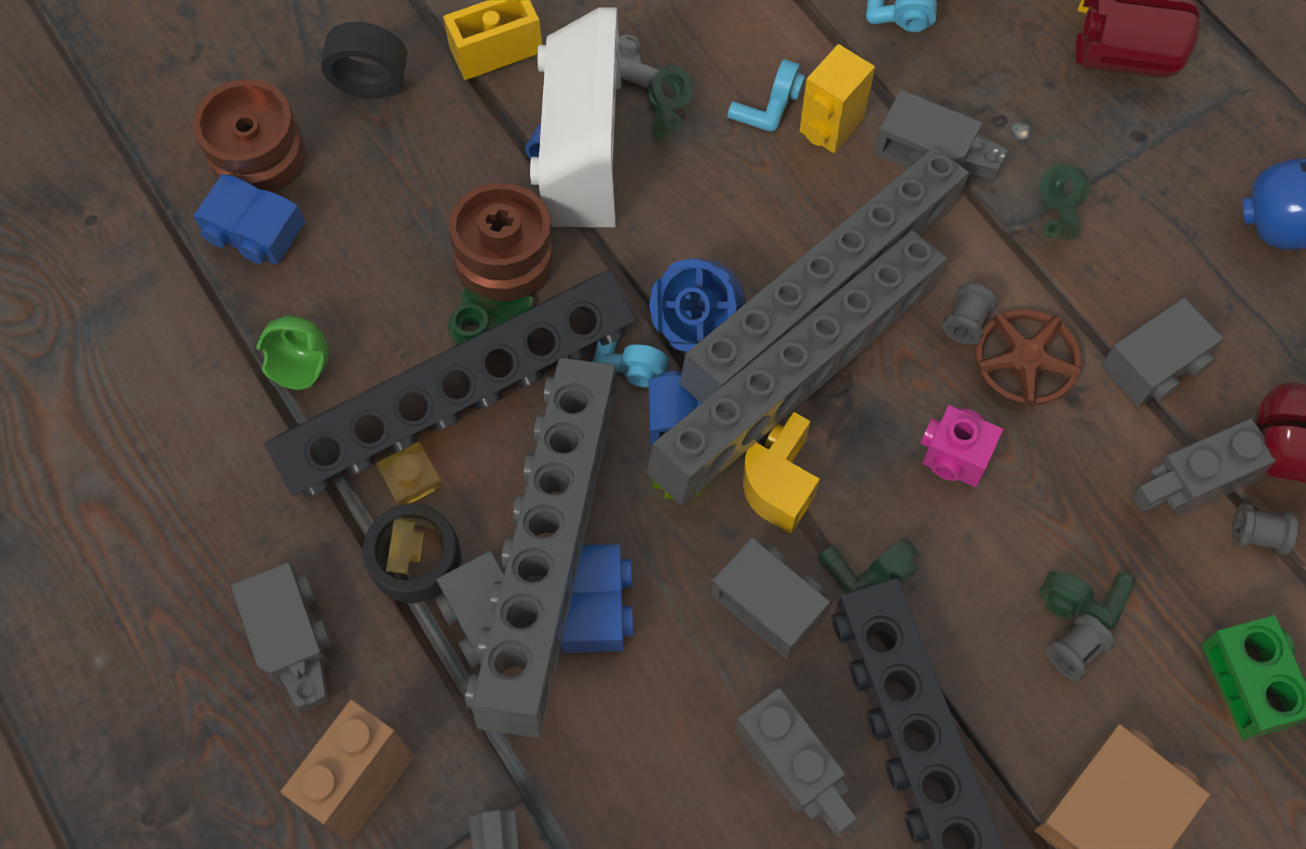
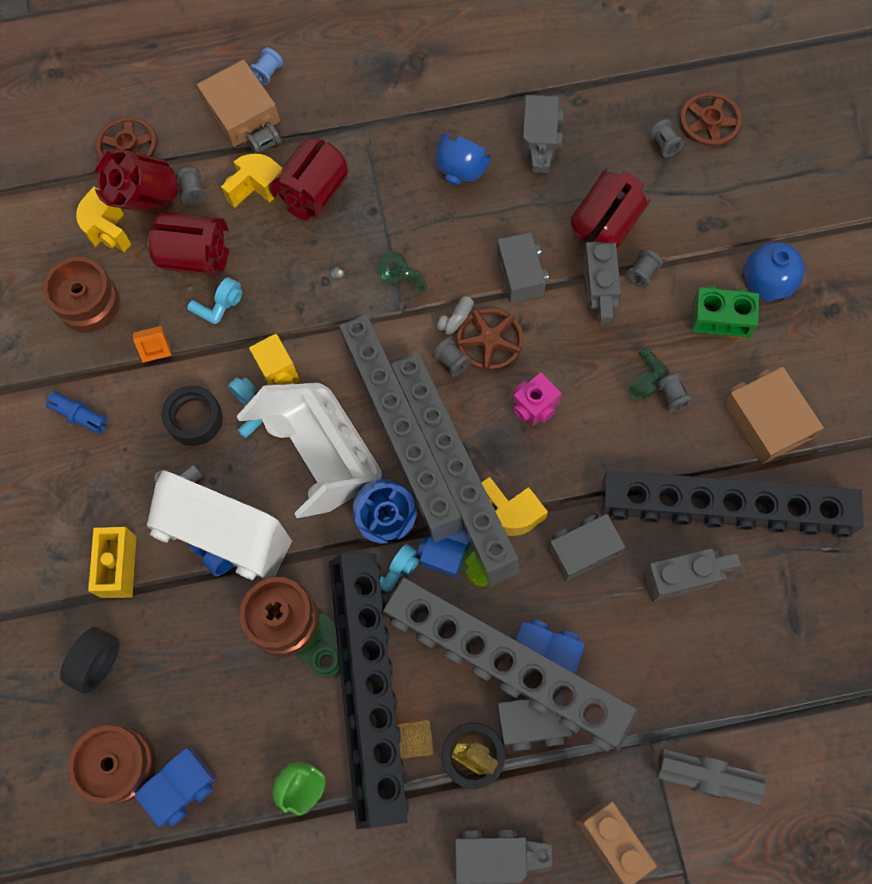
camera: 65 degrees left, 5 degrees up
(665, 119) = (220, 463): clear green plate -> none
(729, 17) = (181, 397): none -> black tyre
(774, 204) = (321, 436): none -> white windscreen
(892, 564) = (591, 469): clear green plate -> none
(918, 125) = (319, 327): dark grey hinge -> none
(1023, 296) = (459, 315): none -> light grey arm

